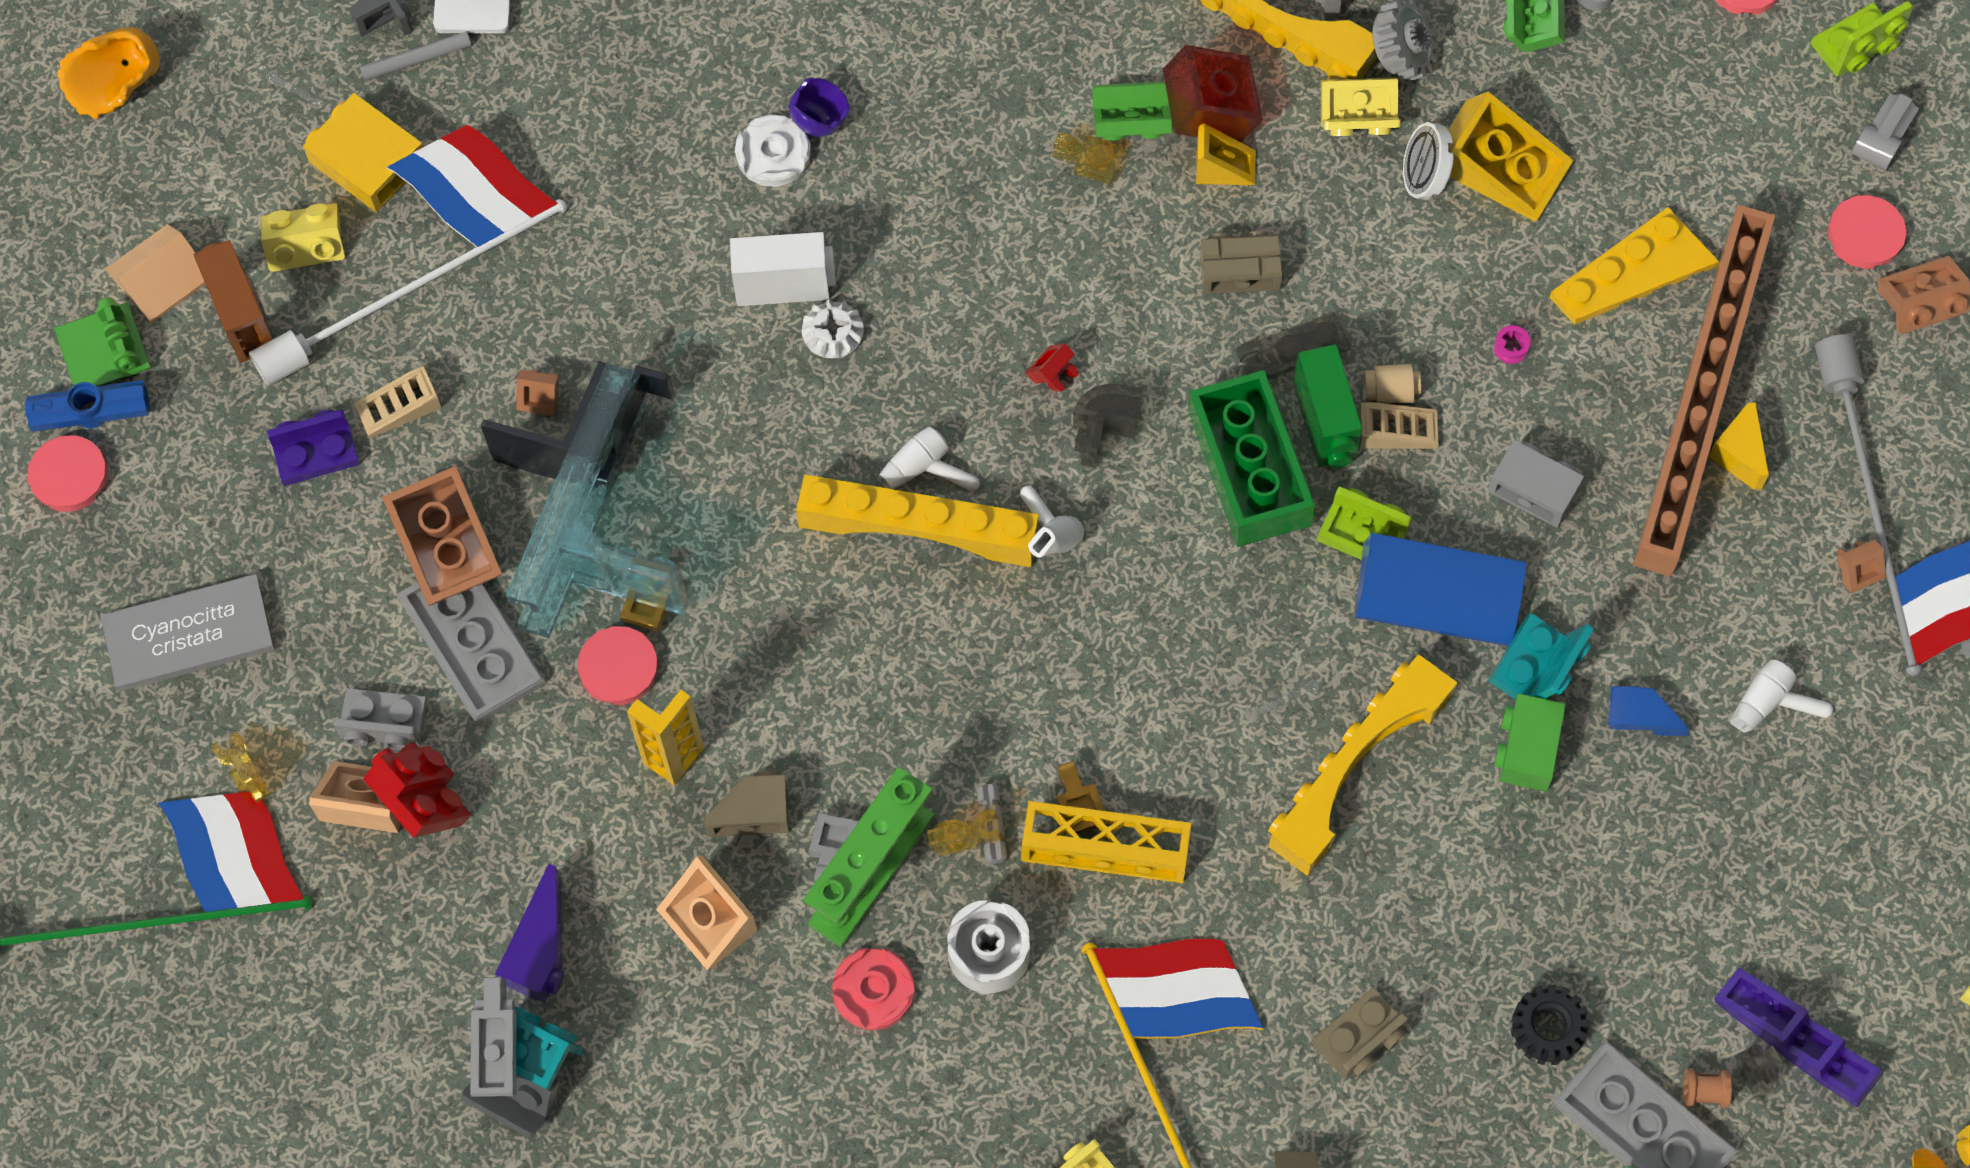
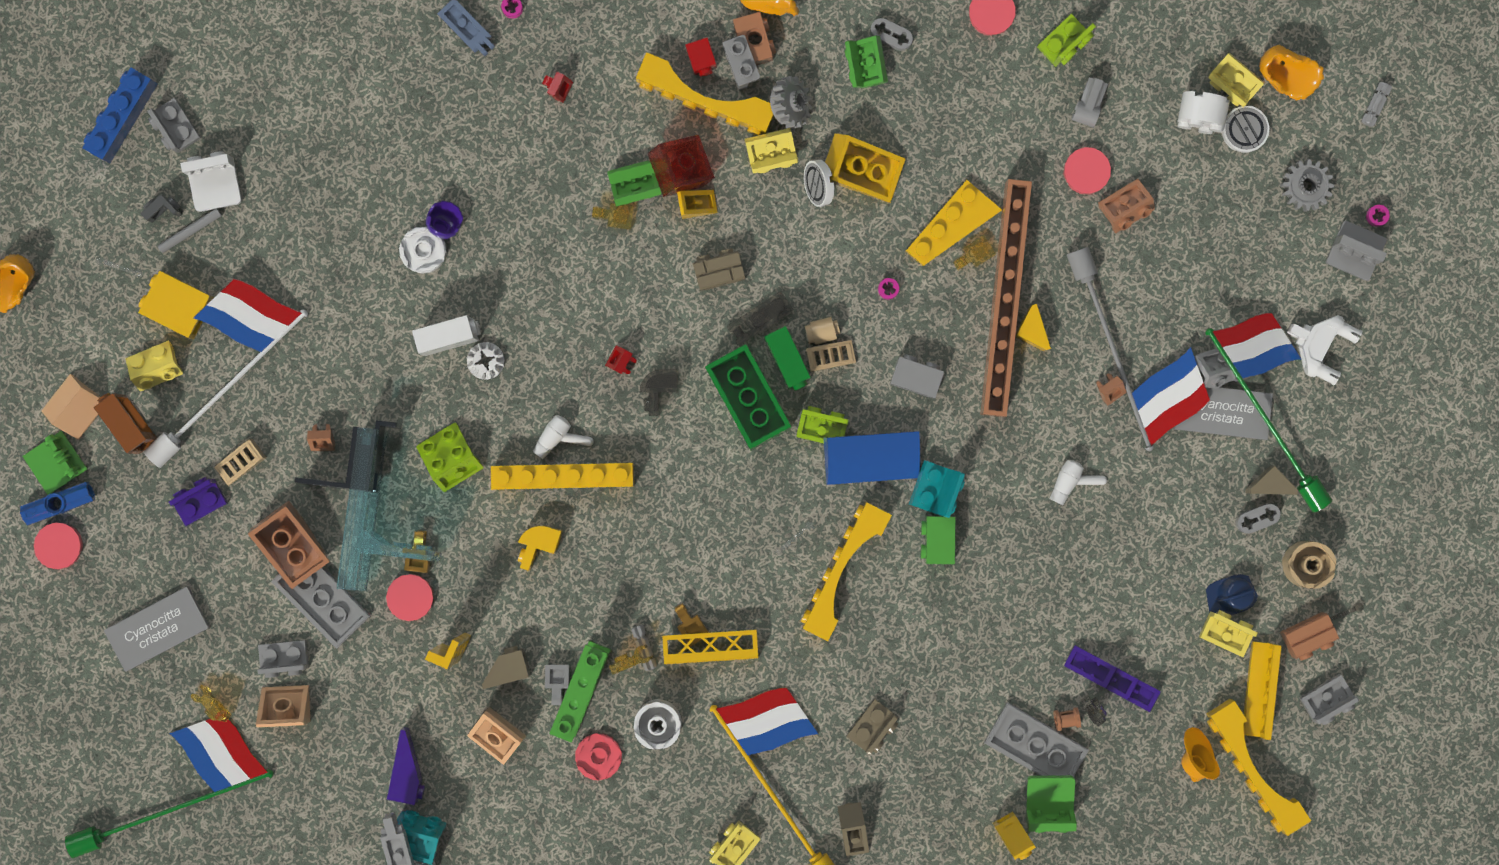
camera: 15 degrees left, 20 degrees up
(416, 790) = (315, 702): red plate -> none
(739, 462) = (448, 457): none -> lime bracket
(853, 610) = (536, 538): none -> yellow brick
(1057, 533) = (646, 467): white piece -> none
(1566, 1007) = (975, 715): black tyre -> none
(1643, 710) = (1000, 505): blue slope -> none
(1665, 317) = (976, 252): none -> clear yellow plate

